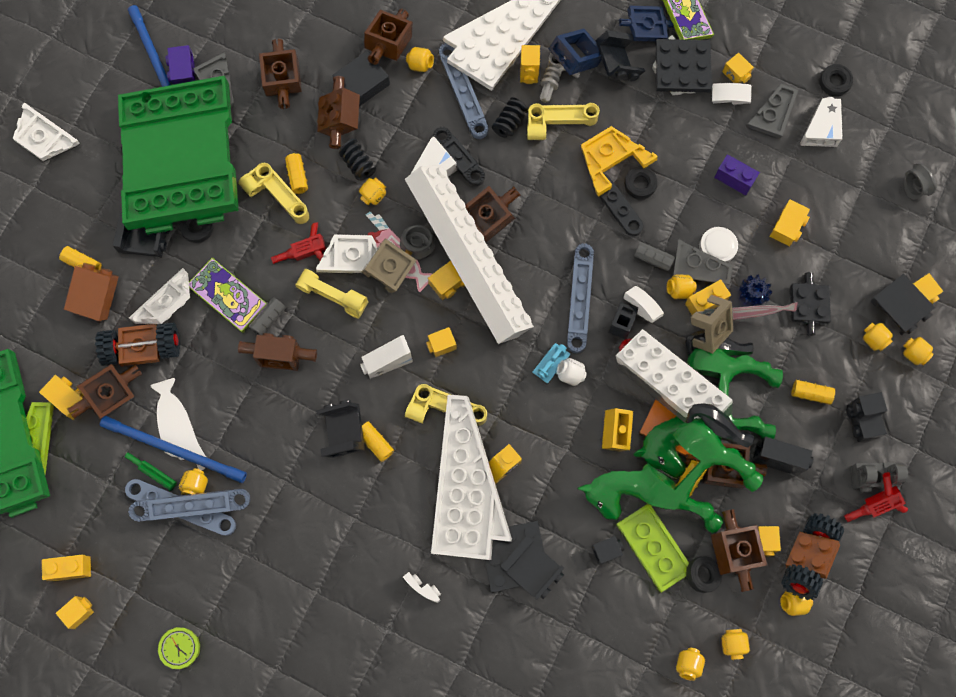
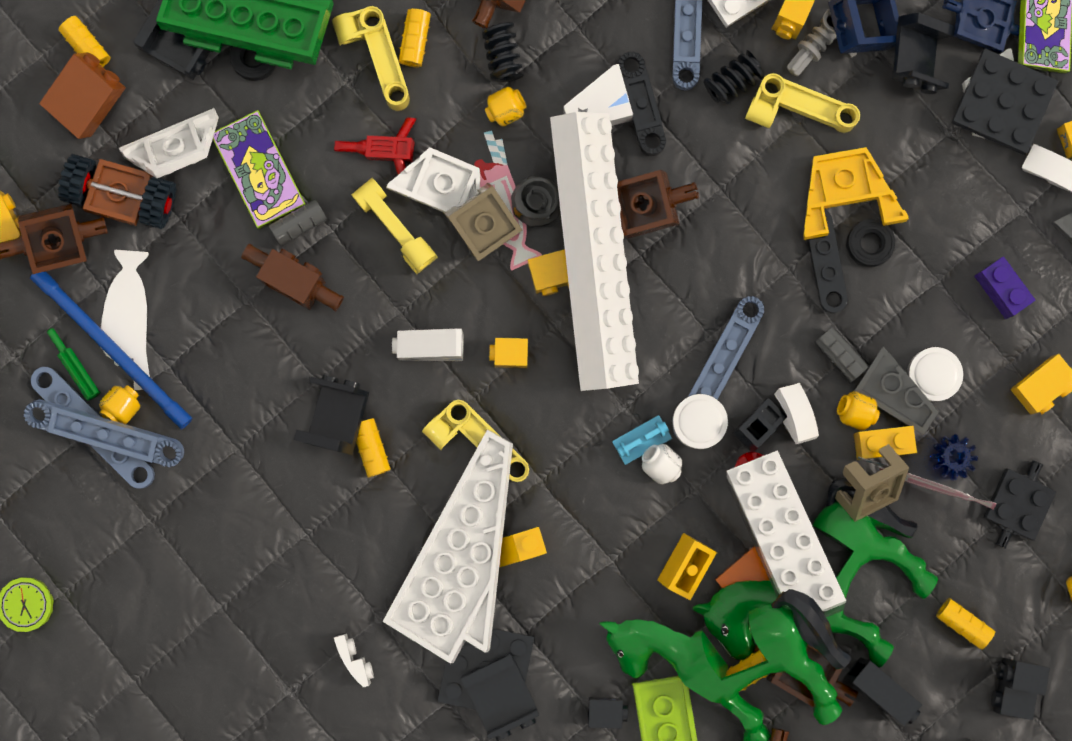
camera: 20 degrees right, 10 degrees up
(584, 334) = (700, 421): none -> white piece

